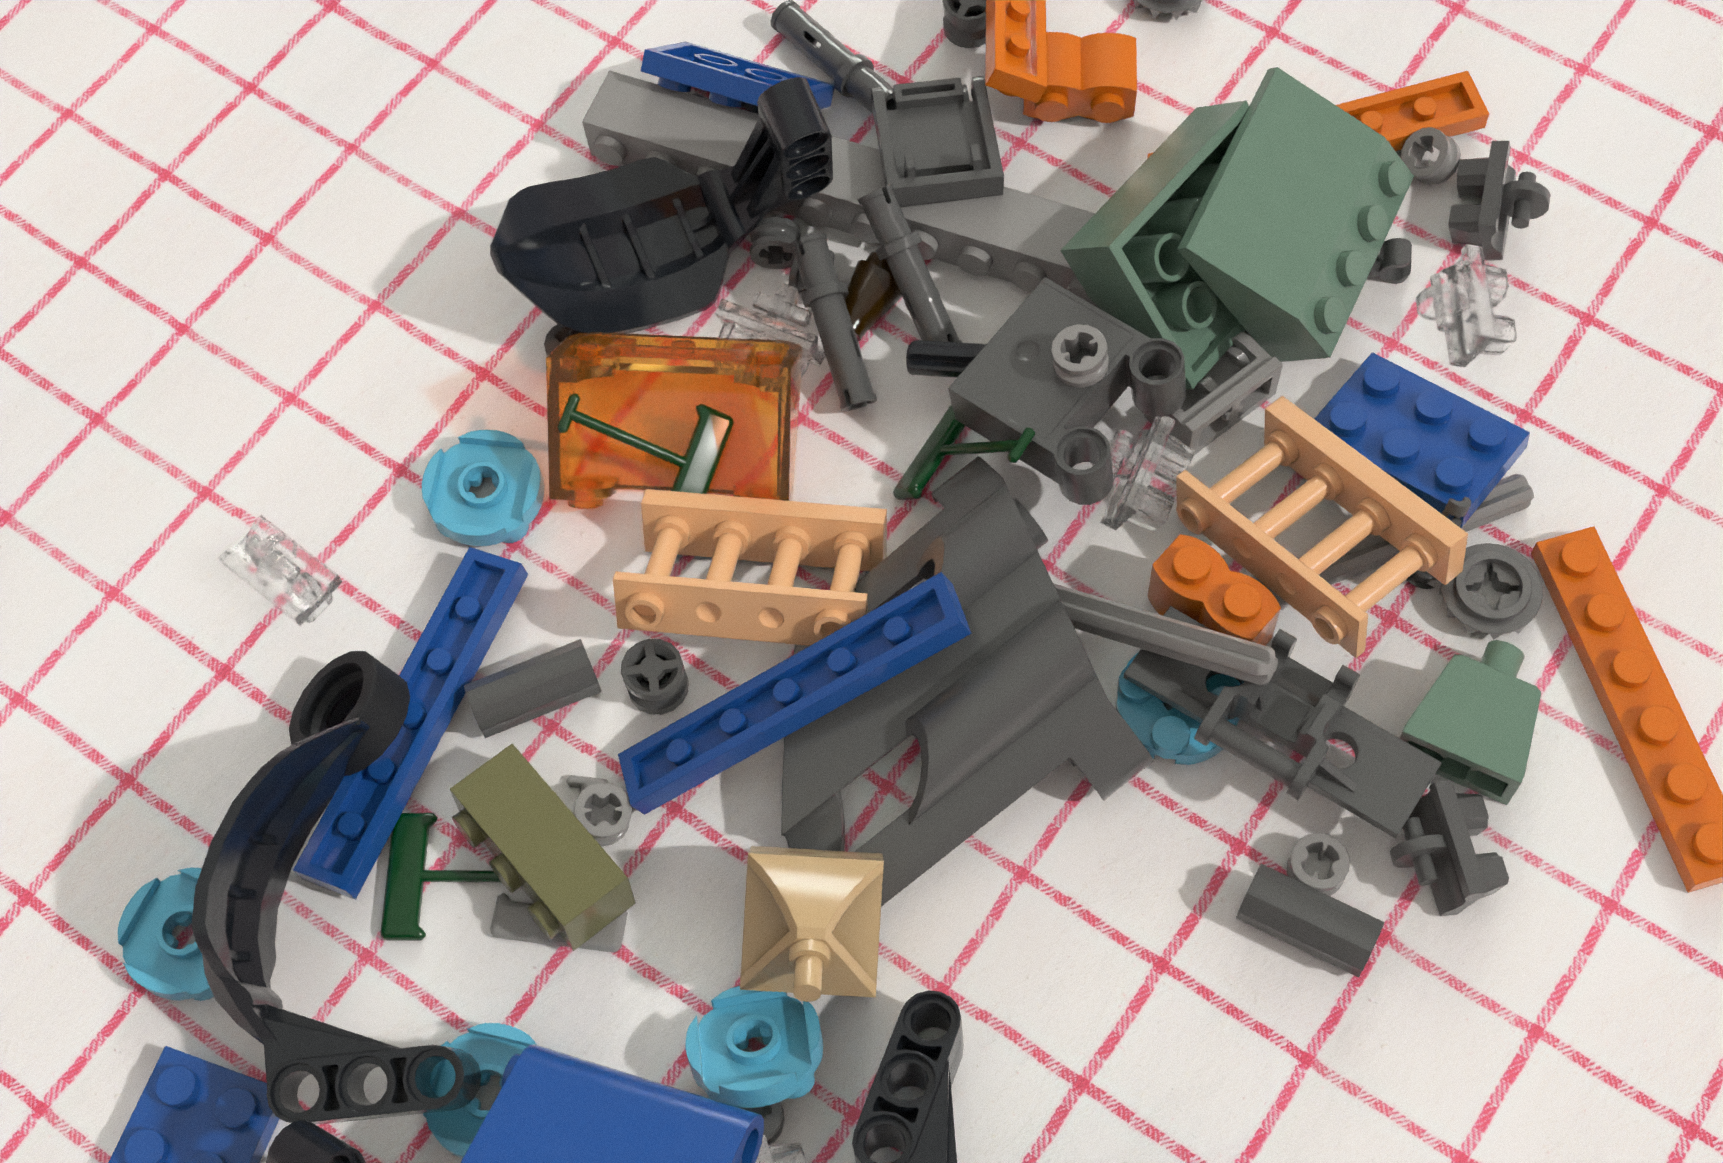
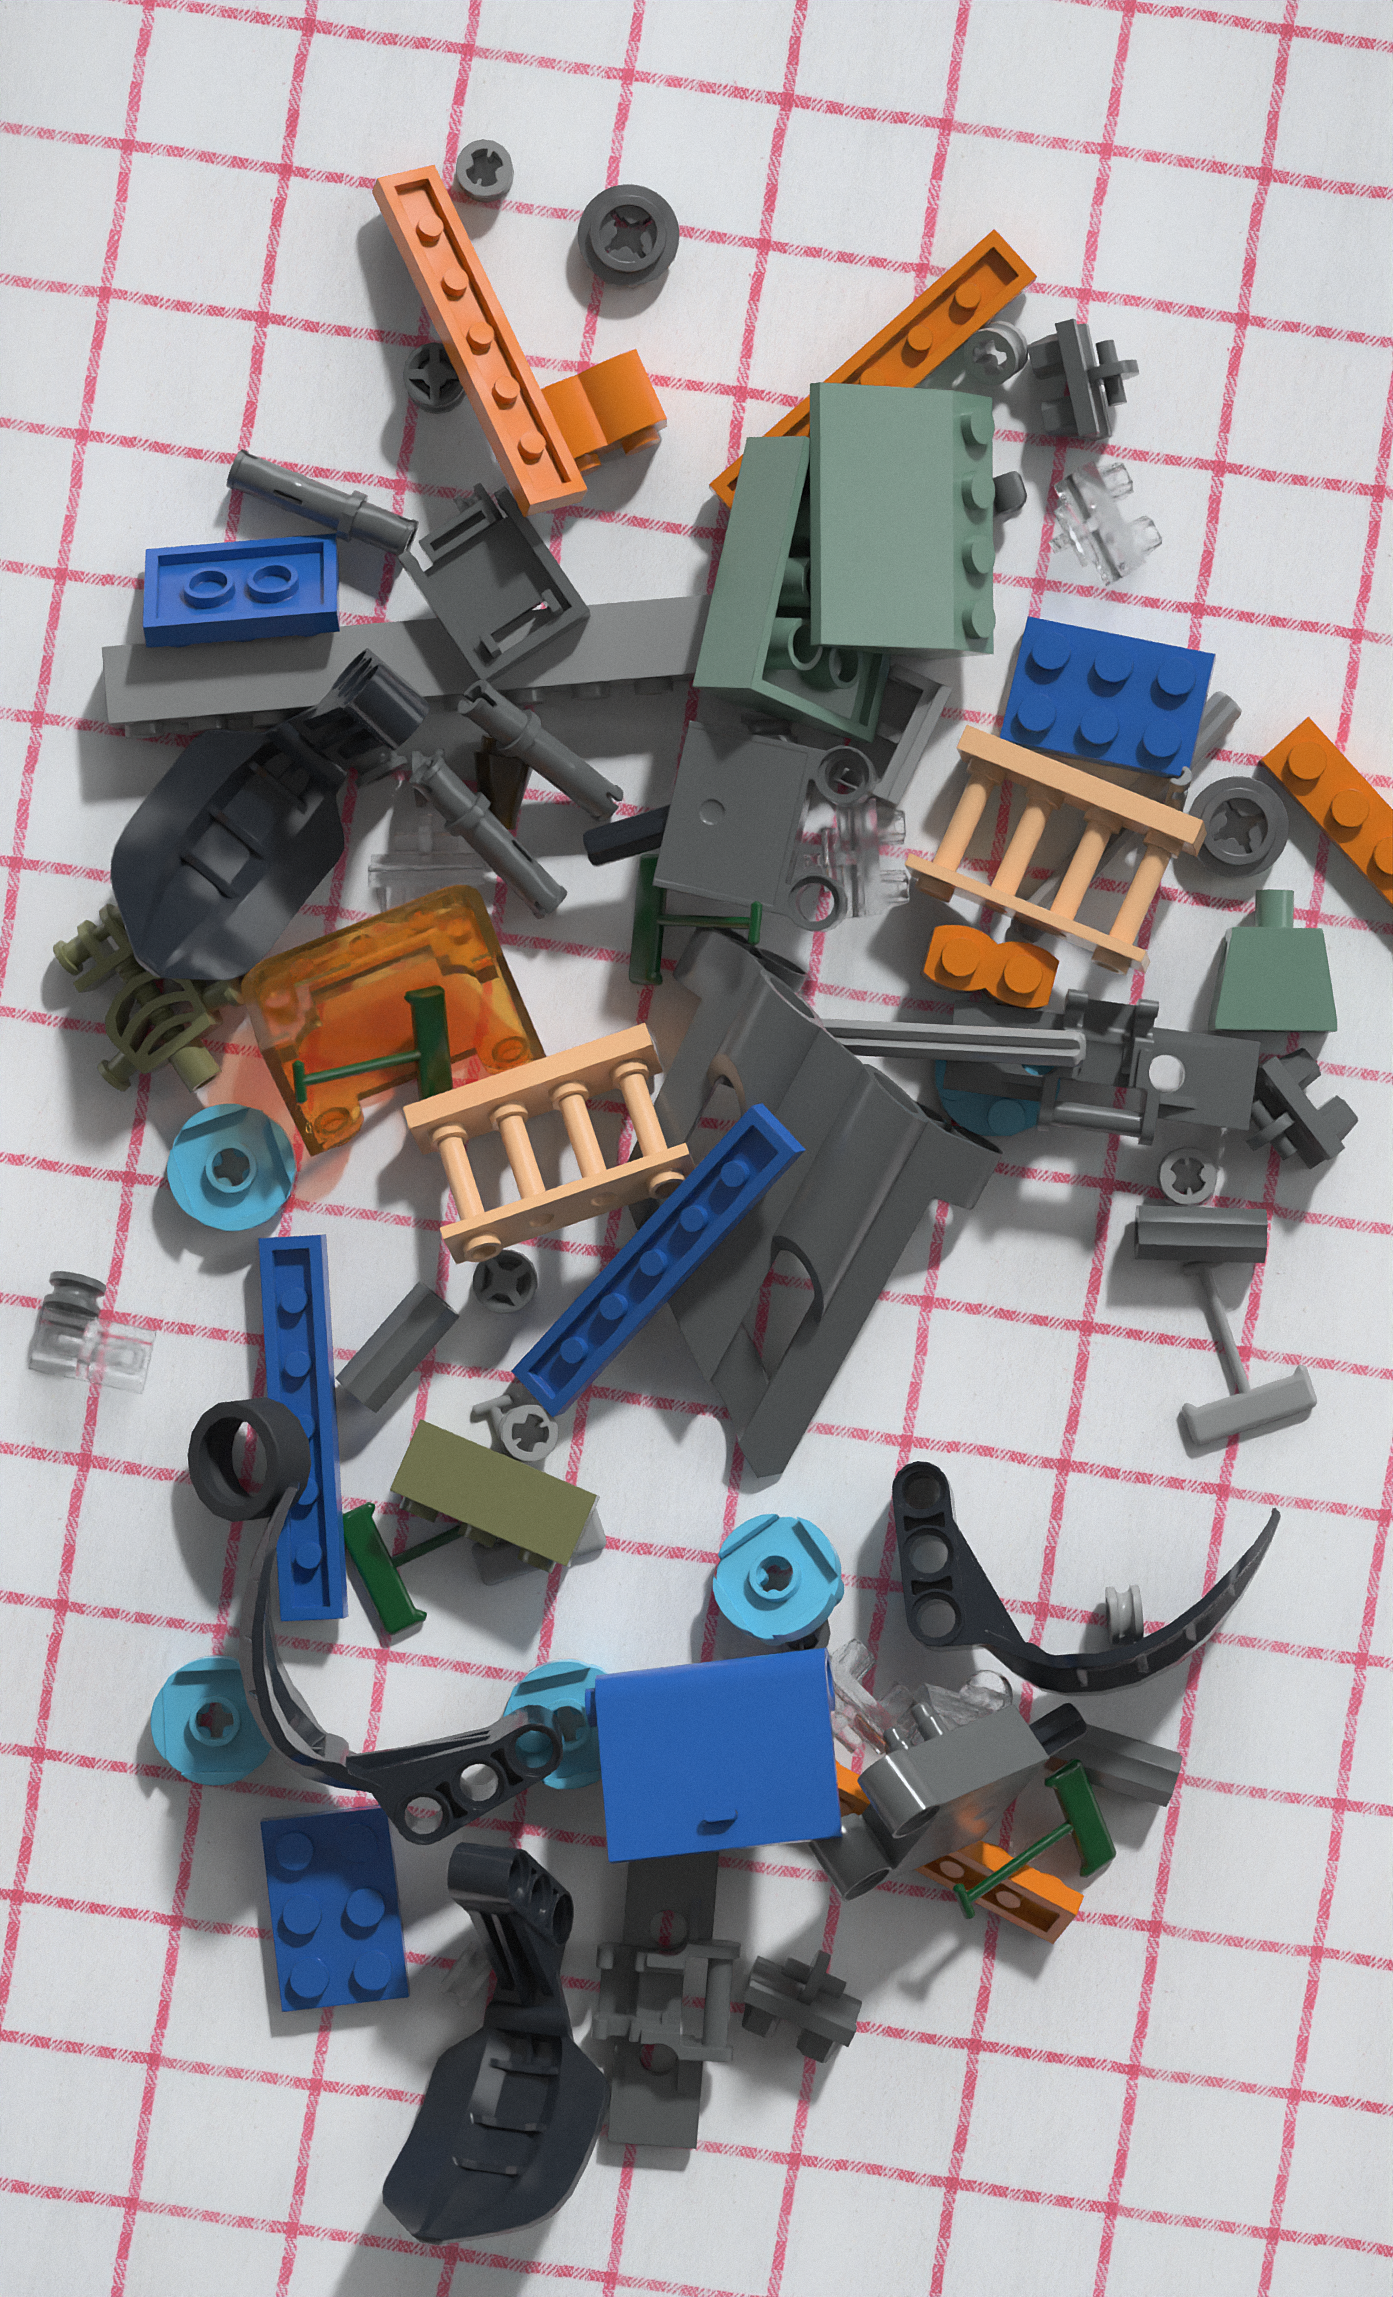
camera: 40 degrees left, 25 degrees up
(298, 522) = (75, 1293): none -> dark grey bush
(493, 341) = (183, 1046): none -> olive piece
(811, 922) = (778, 1455): tan piece -> none
(1068, 344) = (754, 793): light grey bush -> none
(1289, 1111) = (1250, 1406): none -> light grey piece

